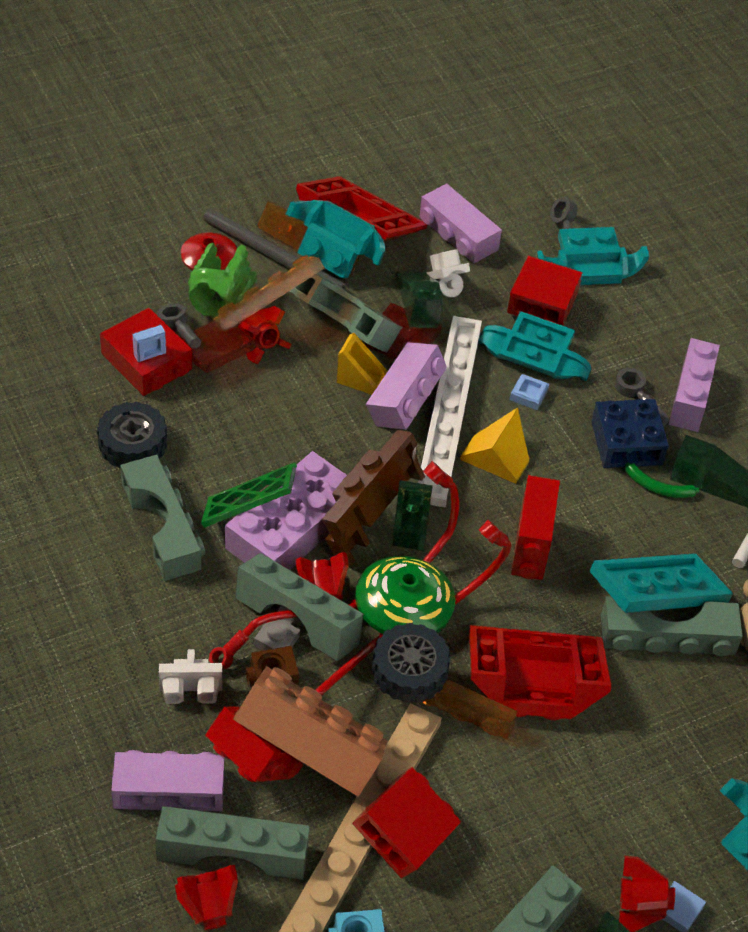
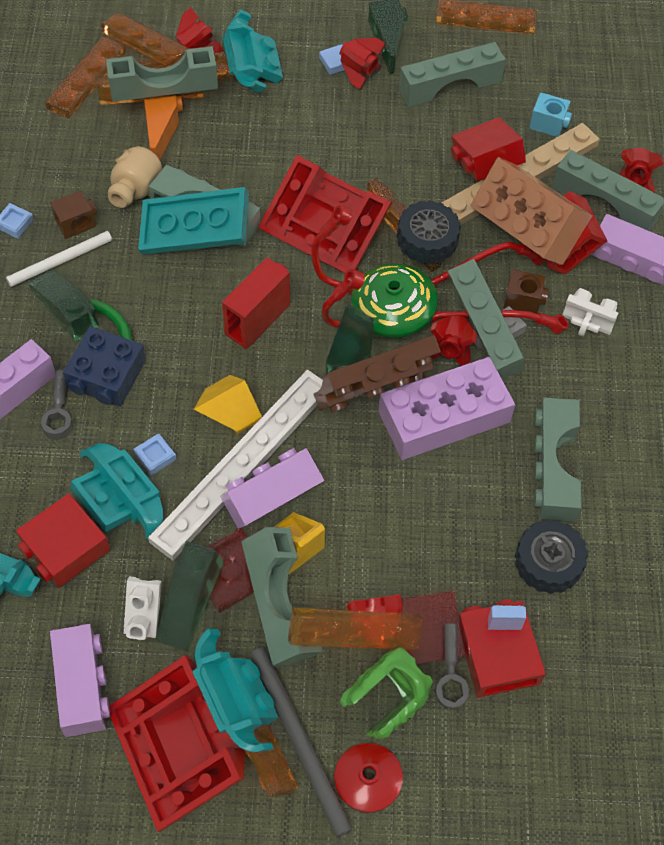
camera: 150 degrees left, 10 degrees up
(258, 498) = (457, 436): green window -> none

